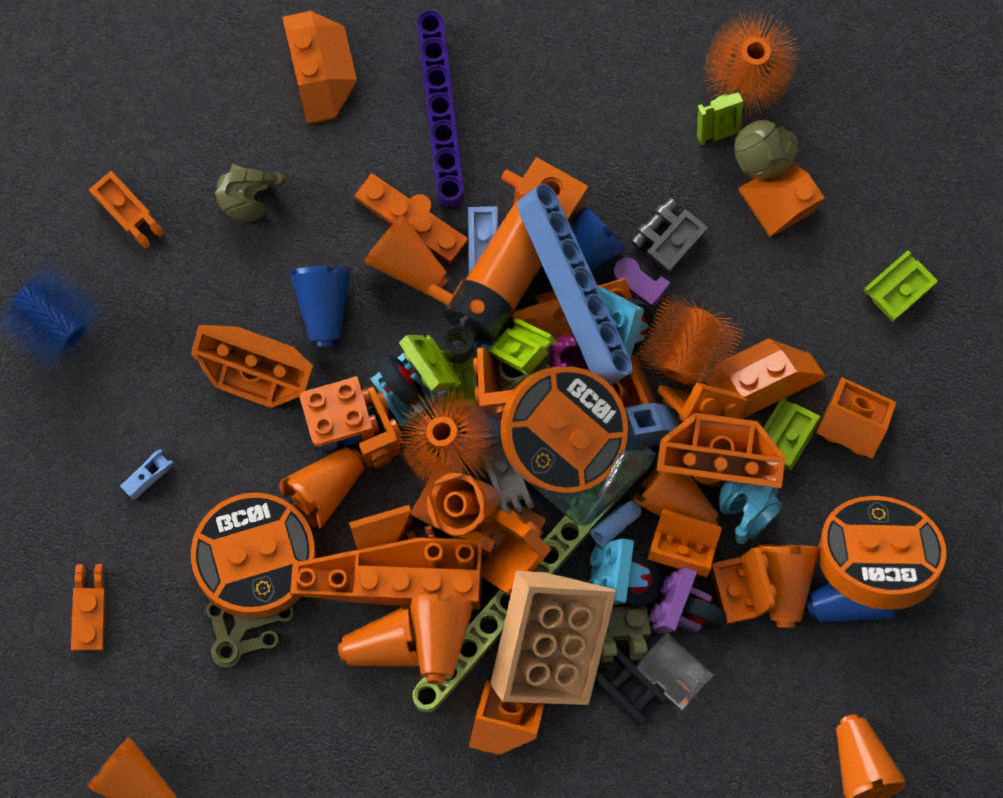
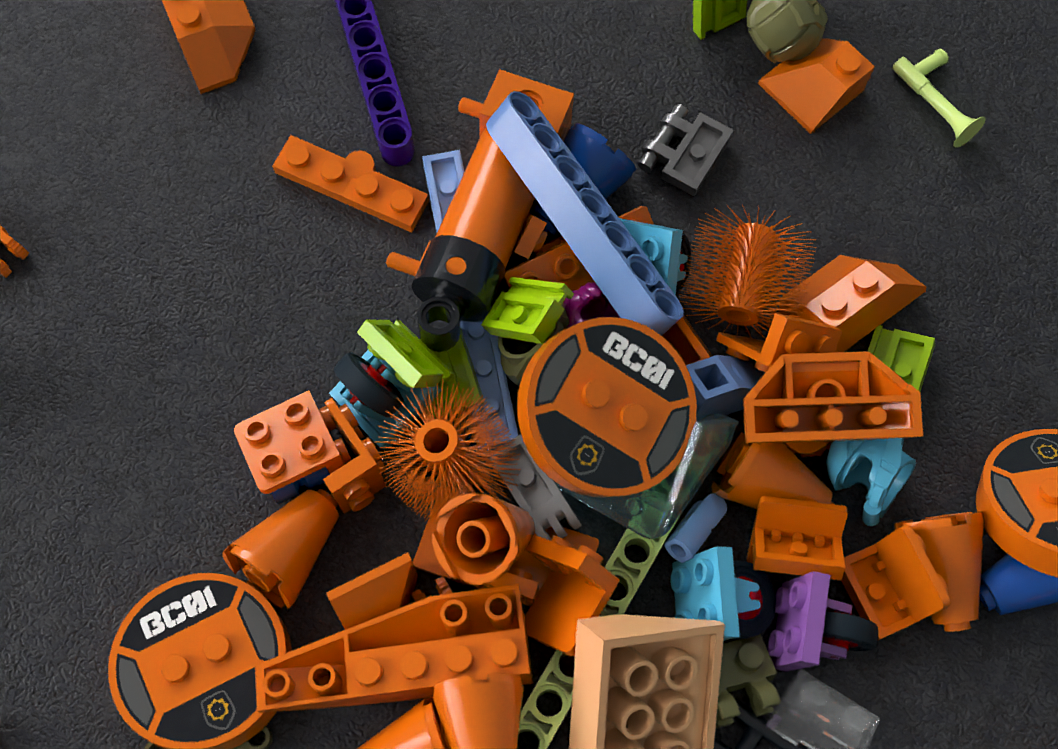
camera: 10 degrees left, 5 degrees down
(143, 479) = (32, 581): light blue bar -> none
(238, 190) = (119, 179): olive helmet -> none
(251, 364) = (161, 401): orange wedge -> none
(322, 301) = (247, 300): blue cone -> none
(406, 258) = (350, 228): orange cone -> none
(488, 392) = (490, 378): orange bracket -> none
(537, 289) = (531, 237): none -> orange plate
(640, 284) = (661, 208): medium lavender leg -> none
(856, 418) = (981, 336): orange slope -> none
(859, 204) = (914, 75): none -> yellowish green piece
(900, 286) = (991, 162): lime plate -> none

